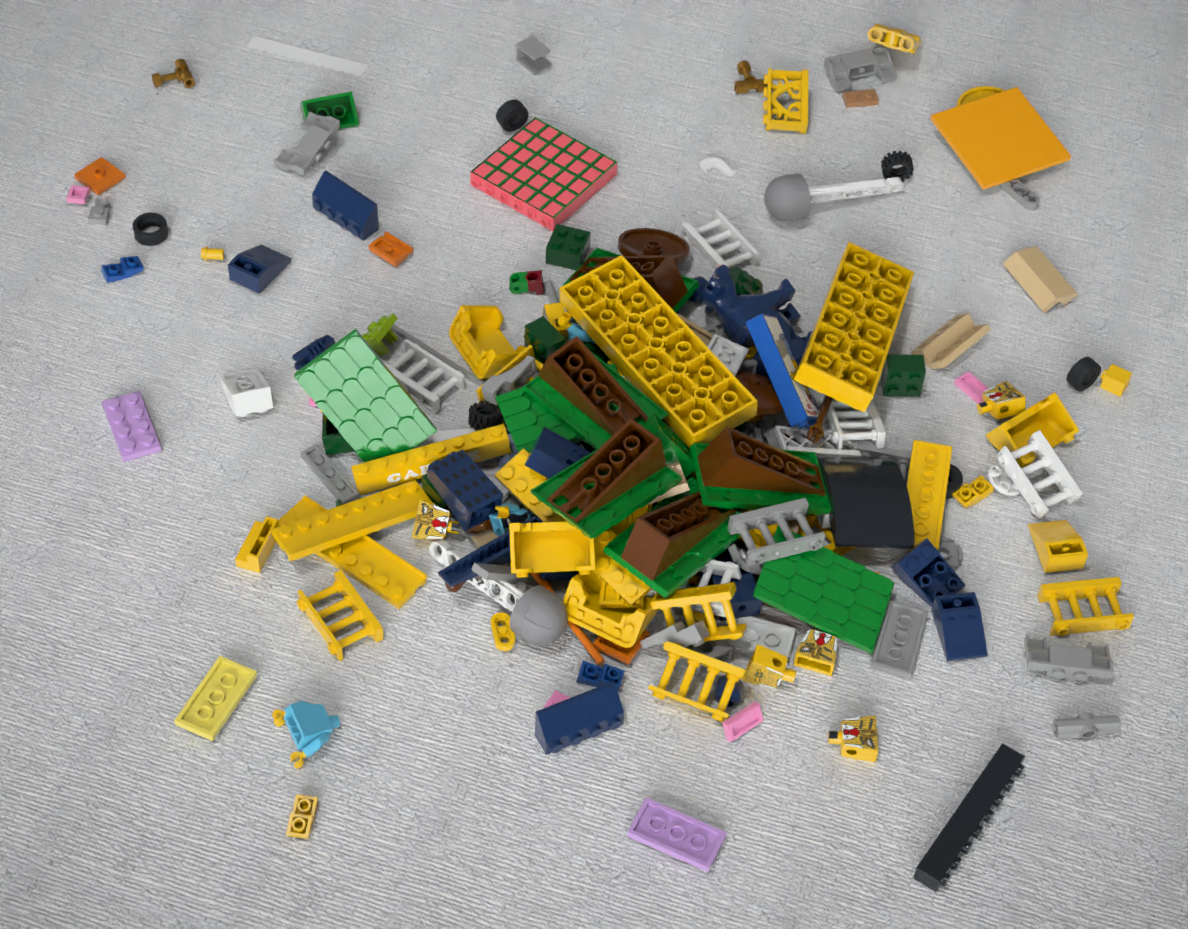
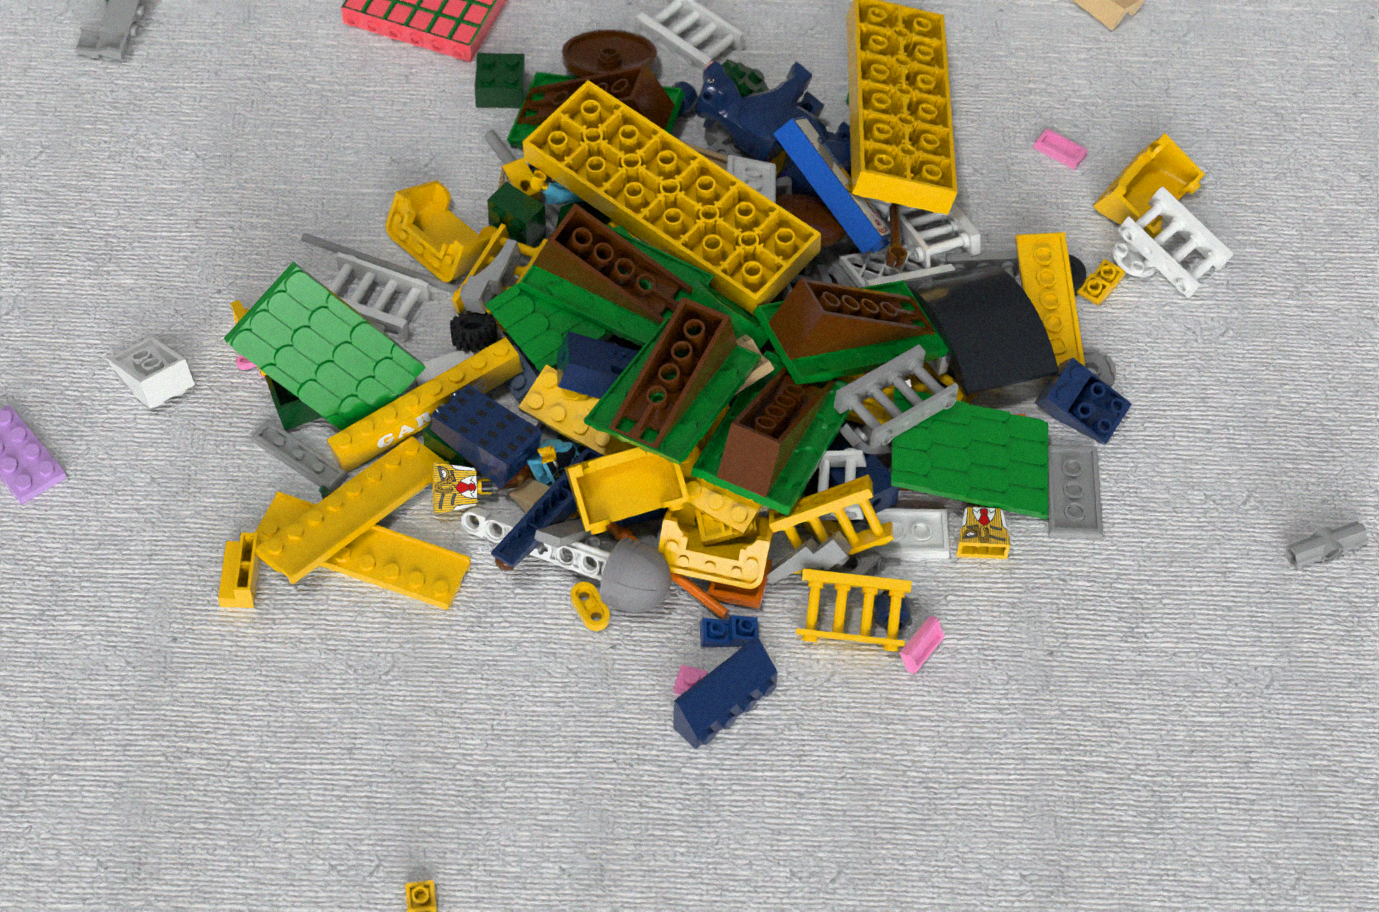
camera: 15 degrees left, 5 degrees up
(212, 253) = (38, 194): yellow pin -> none
(215, 698) = (258, 786): light yellow plate -> none
(257, 267) = (106, 200): dark blue slope -> none
(308, 726) = (390, 792): medium azure torso -> none
(312, 350) = (219, 297): dark blue hinge -> none
(345, 206) = (194, 90): dark blue slope -> none
(350, 599) = (385, 613): yellow fence -> none
(380, 330) = (299, 249): lime plate -> none
(391, 249) = (271, 134): orange plate -> none
(526, 282) = (463, 139): leg -> none
(676, 834) = (889, 807): lavender plate -> none
(768, 668) = (932, 569): yellow torso -> none
(857, 738) = (1065, 630): torso -> none
(903, 375) = (977, 152): dark green brick -> none
(950, 341) = (1012, 95): tan slope -> none
(959, 626) = (1141, 457): dark blue slope -> none
(969, 817) = (1227, 694): black brick -> none
(1002, 401) = (1101, 158): yellow torso -> none
(1058, 546) = (1224, 326): yellow slope -> none
(1068, 661) = (1280, 469): light grey bracket -> none
(1083, 374) = (1186, 99): black tyre -> none
(1084, 589) = (1278, 373): yellow fence -> none
(1115, 379) = (1225, 98): yellow brick -> none

